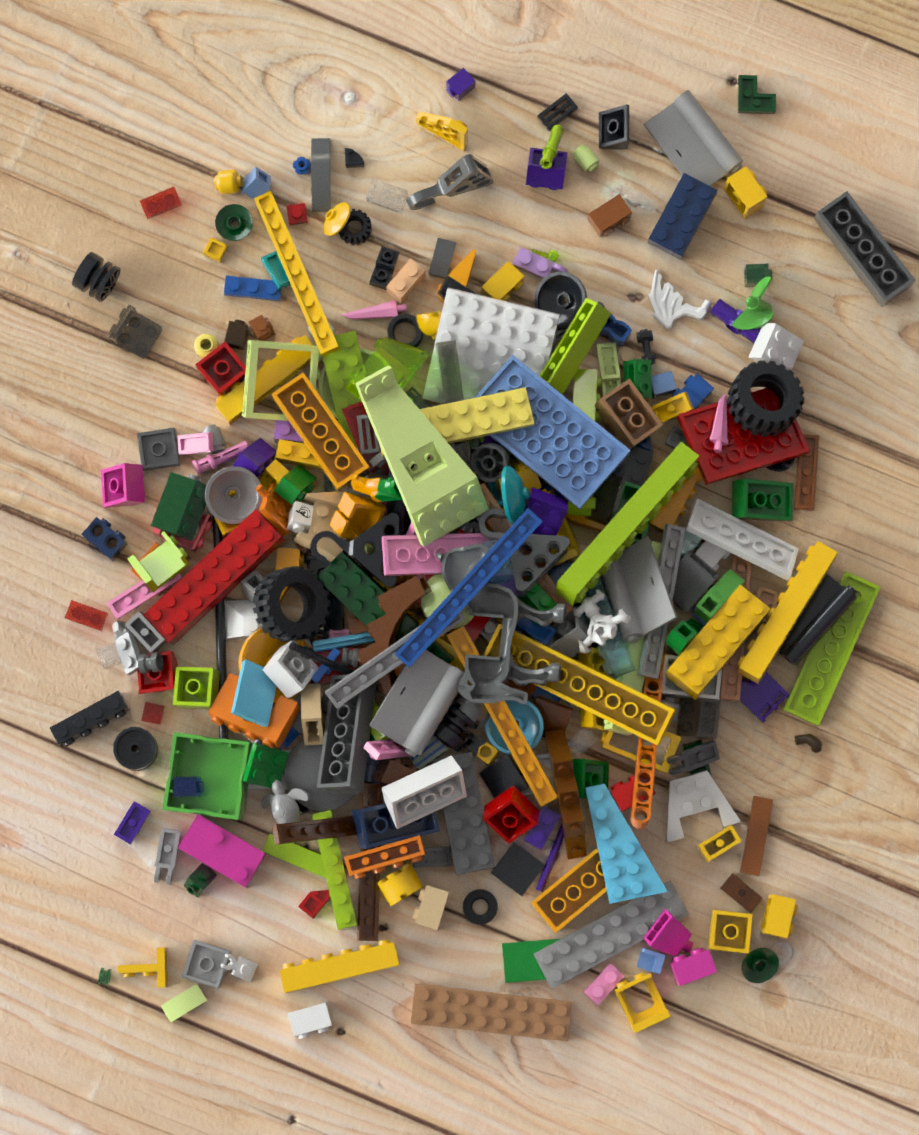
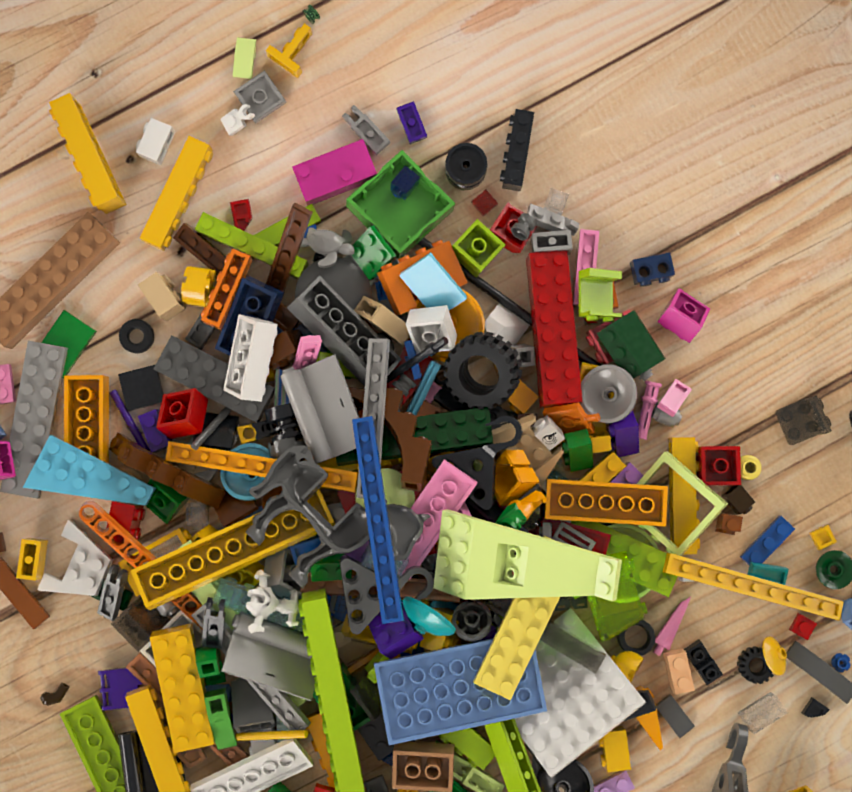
camera: 130 degrees right, 5 degrees up
(86, 615) = (601, 209): clear red plate -> none
(158, 449) = (692, 366): dark grey tile -> none
(199, 880) = (326, 139): dark green bracket -> none
(363, 1064) = (87, 154): none -> yellow brick
(504, 783) = (210, 428): none -> dark grey bar
(649, 652) = (213, 625): none -> black hinge
(698, 546) = (267, 735): none -> yellow bar

